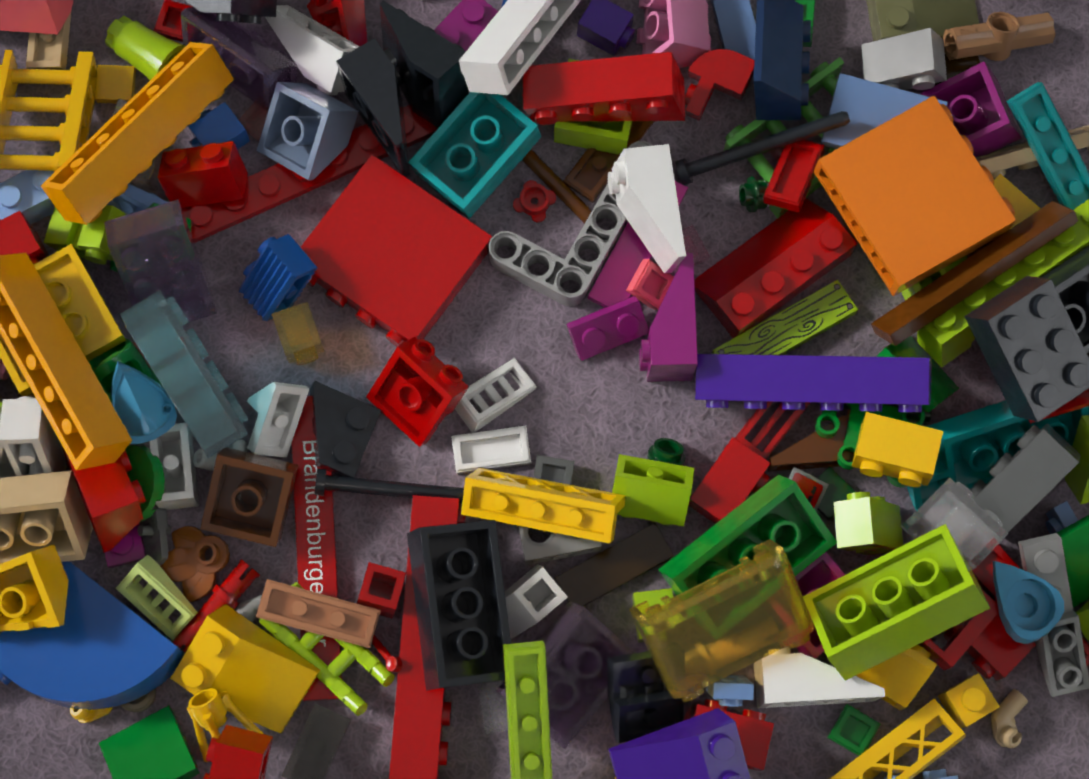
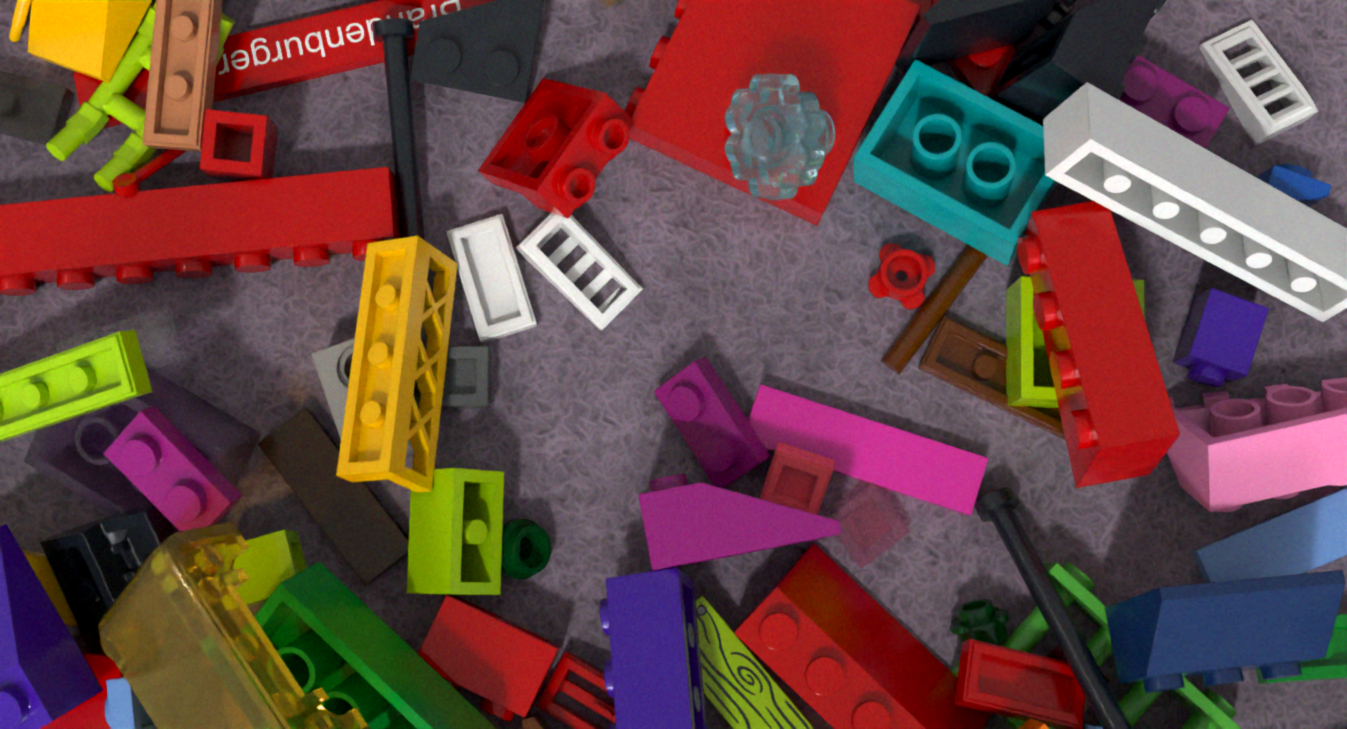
camera: 85 degrees right, 5 degrees up
(446, 249) = (777, 136): none -> clear light blue plant
(459, 603) = (210, 260): black brick -> none
(531, 599) = (254, 369): white slope -> none
(572, 266) = (858, 368): light grey beam -> none
(593, 643) = (171, 472): none -> magenta plate
(649, 201) = (926, 443): white slope -> none
(717, 70) = (1180, 526): red brick -> none

